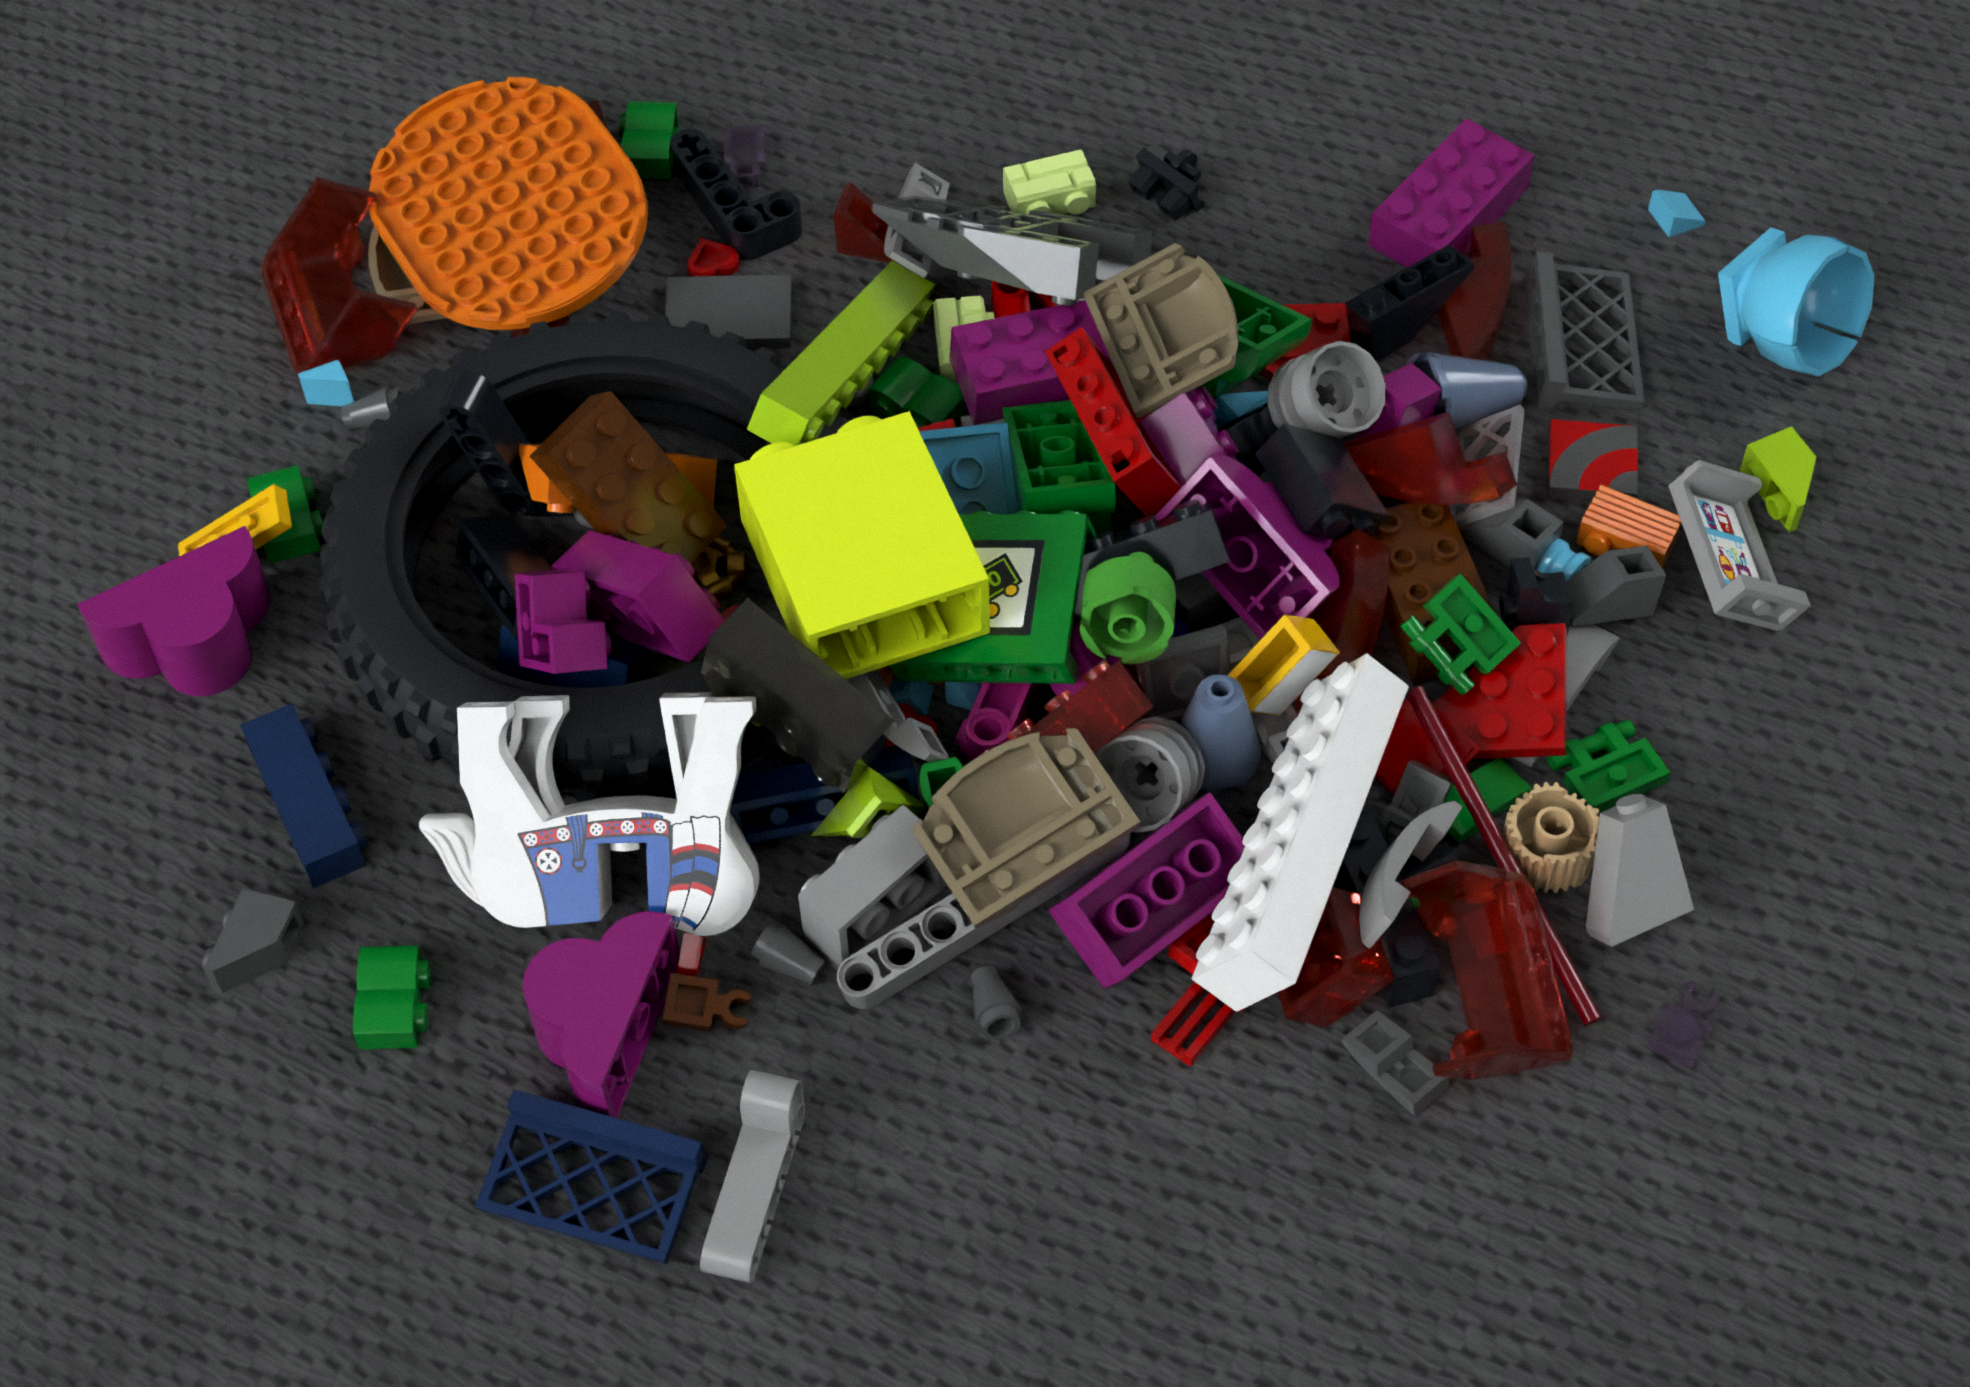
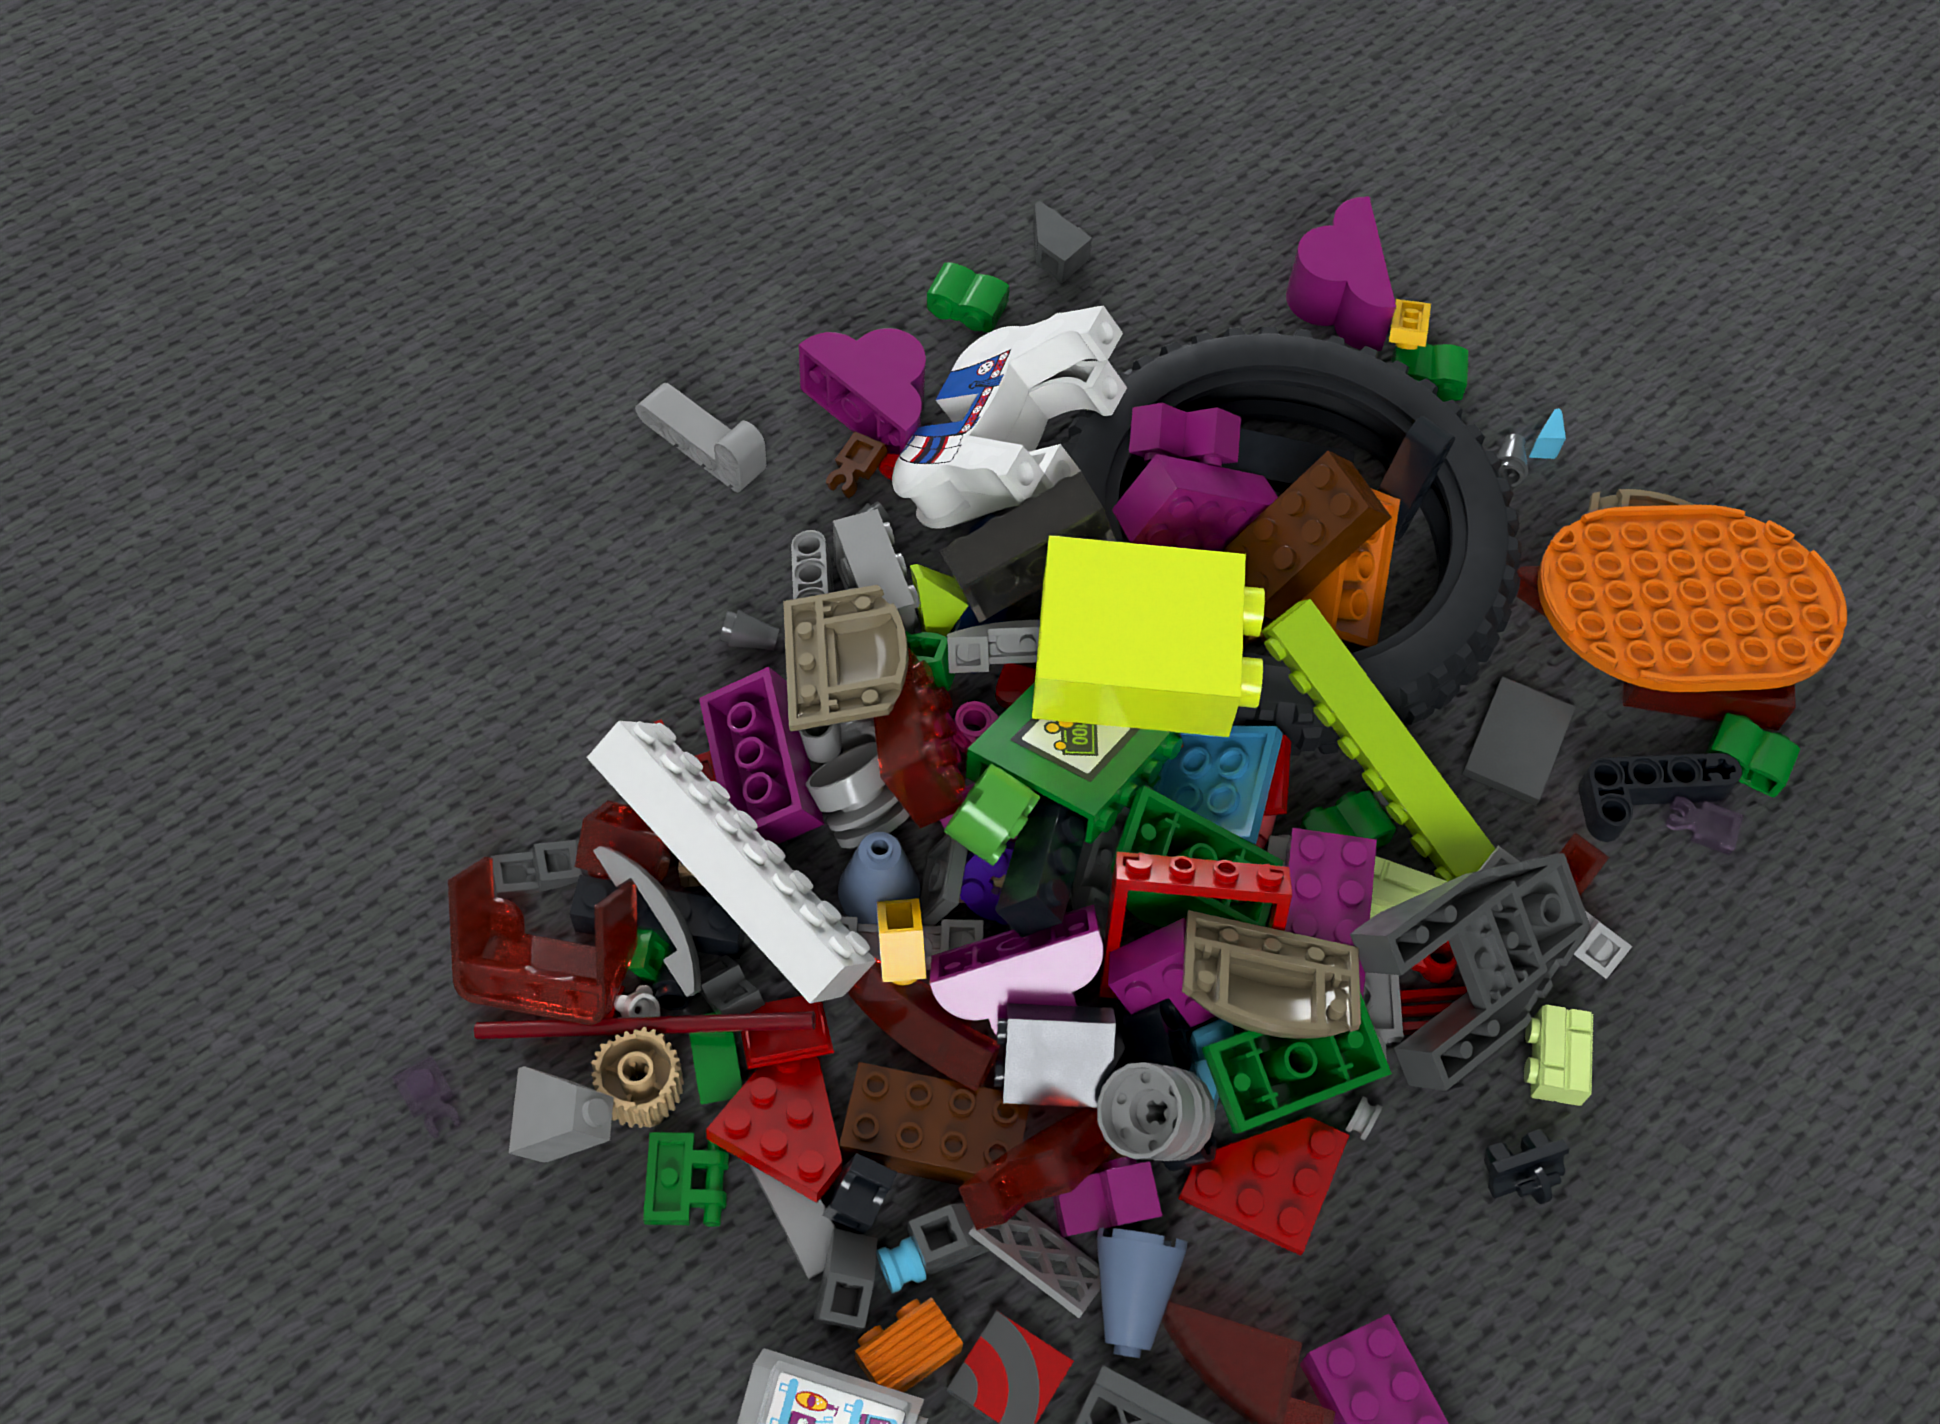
camera: 110 degrees right, 5 degrees up
(304, 796) = (1165, 301): dark blue brick -> none
(312, 284) = (1657, 463): clear red windscreen -> none
(606, 1135) = (778, 383): dark blue fence -> none
(712, 259) = (1584, 749): red tile -> none
(1403, 304) = (1266, 1289): black slope -> none
(1469, 624) = (853, 1102): green plate -> none

